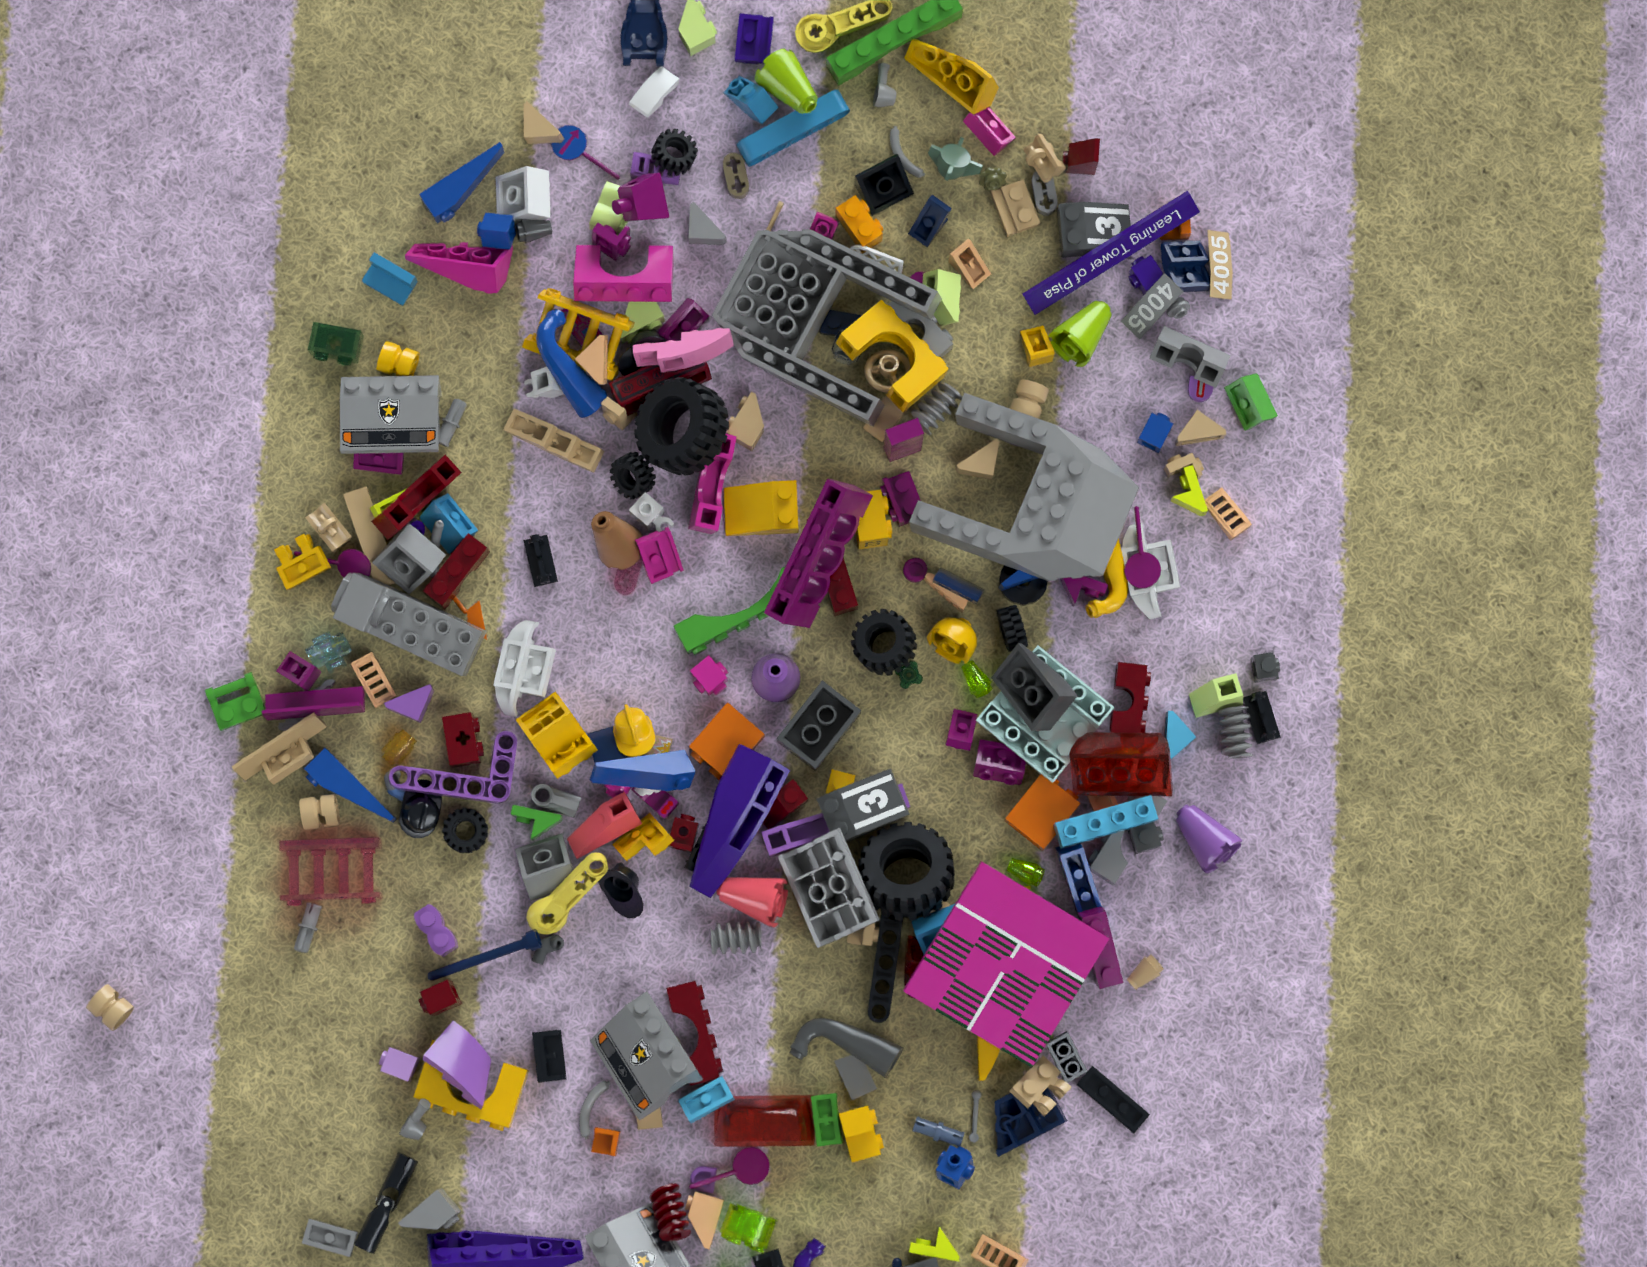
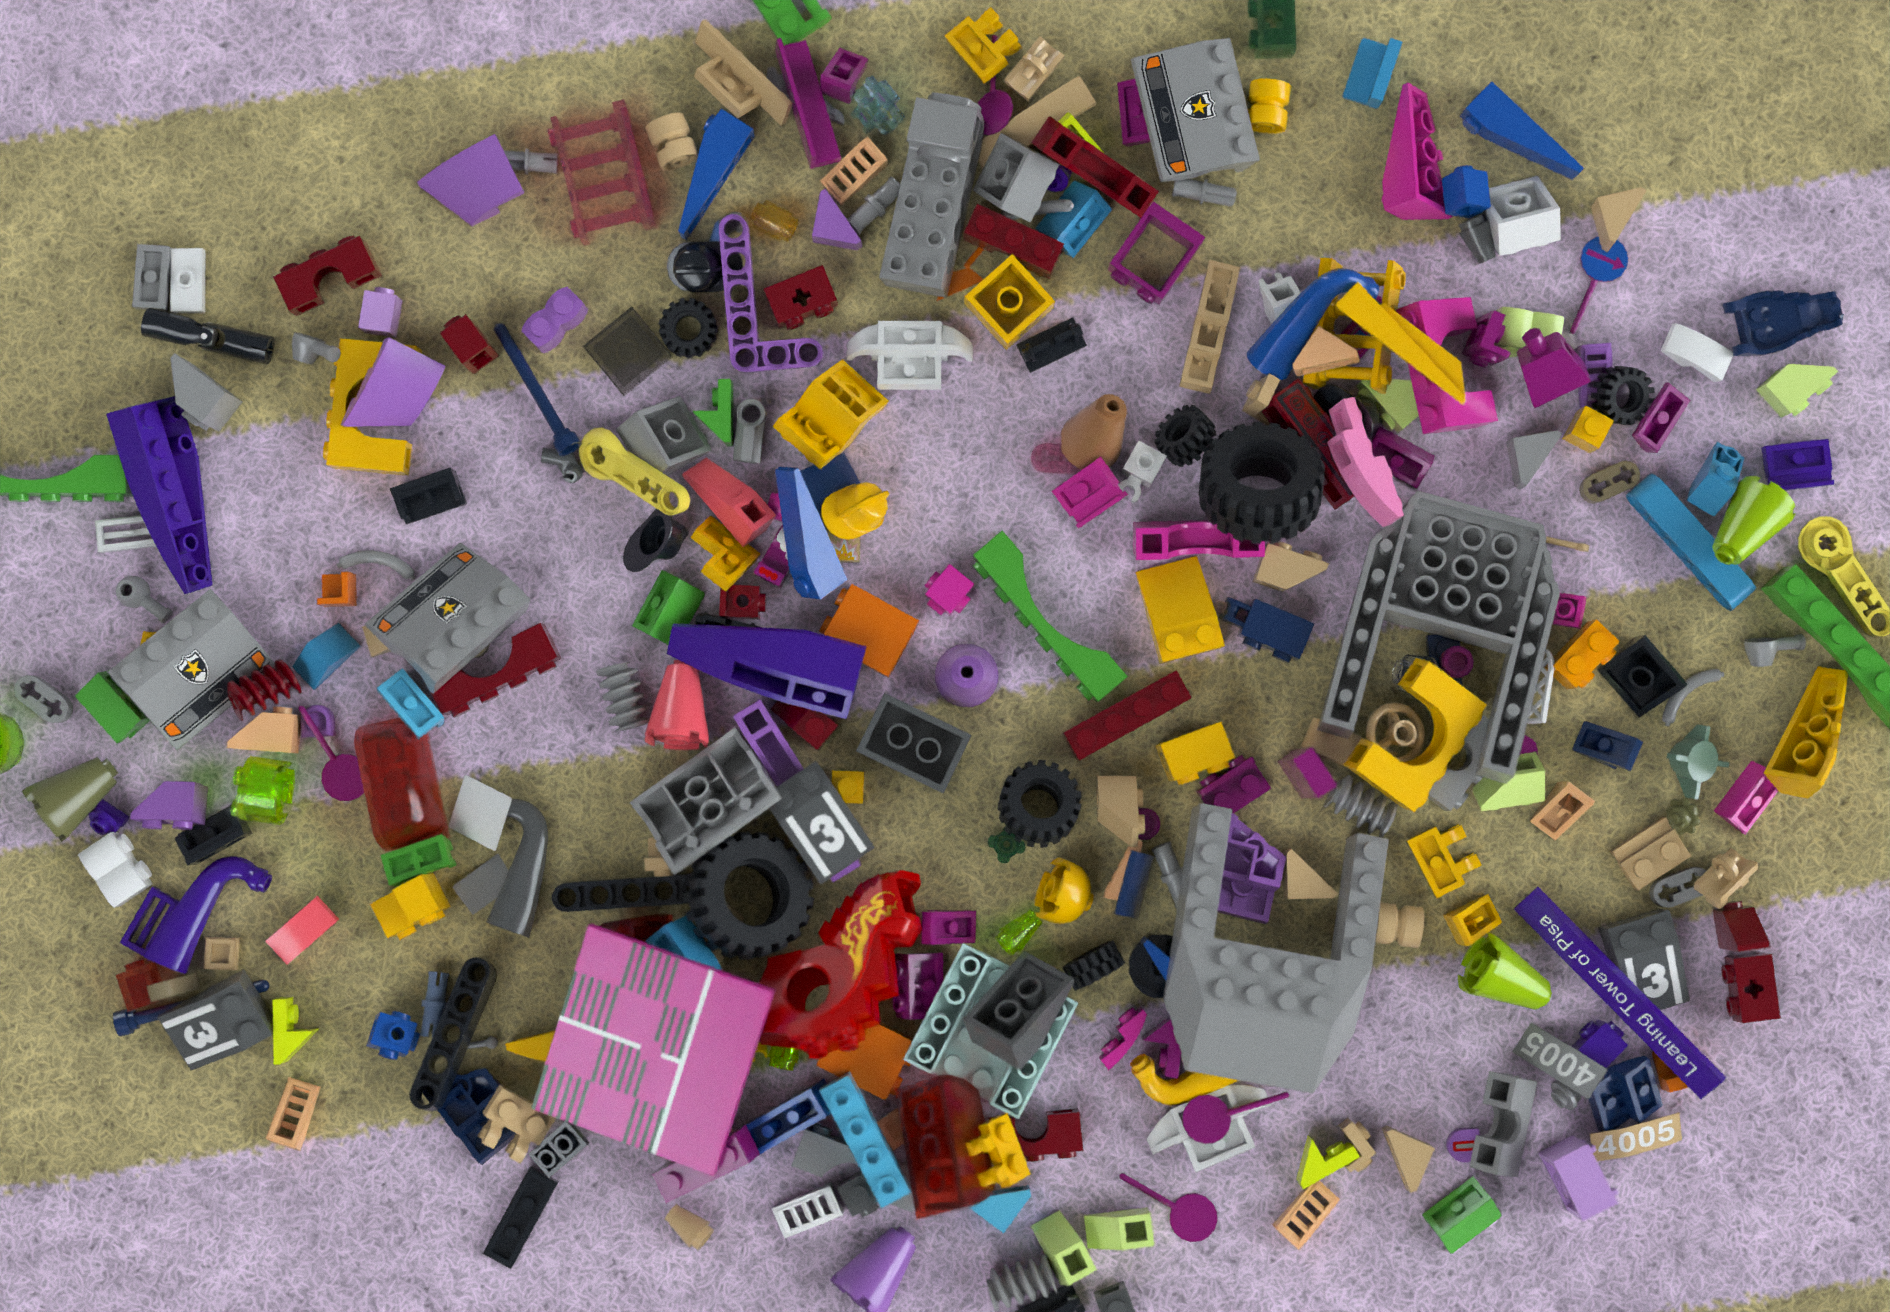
camera: 80 degrees right, 5 degrees up
(315, 970) = (474, 181): none -> medium lavender slope
(338, 1211) = (187, 280): none -> white plate
(352, 1079) = (301, 282): none -> dark red arch
(403, 668) = (874, 205): none -> light grey pin
(472, 881) = (627, 351): none -> clear smoke tile
(473, 450) = (1173, 228): none -> magenta window
(502, 584) = (1009, 302): none -> yellow brick
(601, 298) = (1404, 340): none -> yellow wedge
(654, 1162) = (325, 655): none -> dark azure slope
(673, 891) = (668, 603): none -> bright green panel
(693, 182) = (1588, 429): none -> yellow brick
(697, 129) = (1660, 418): none -> magenta slope
(790, 445) = (1269, 628): none -> dark blue brick
(800, 1065) = (480, 812): none -> white sticker
(818, 553) = (1131, 694): magenta fence -> none
(844, 315) = (1456, 662): none -> magenta tile
(860, 1221) = (302, 930): none -> coral slope
(899, 584) = (1118, 807): none -> tan slope
(953, 557) = (1170, 868): none -> light grey pin
(970, 498) = (1249, 874): none -> medium lavender slope
(972, 804) = (853, 962): none -> red animal
(976, 1120) = (440, 1045): none -> black beam
(987, 363) = (1436, 861): none -> yellow plate
(1064, 612) = (1130, 1027): none -> dark pink slope
(1135, 721) = (1004, 1151): none -> yellow plate
(1138, 152) = (1758, 1003): none -> dark red brick
(1155, 432) = (1393, 1098): blue brick -> none
(1160, 879) = (833, 1202): none -> white slope
(1211, 651) = (1119, 1229): none -> yellowish green slope
(1212, 598) = (1191, 1216): none -> magenta piece
(1239, 311) = (1578, 1177): none -> lavender container

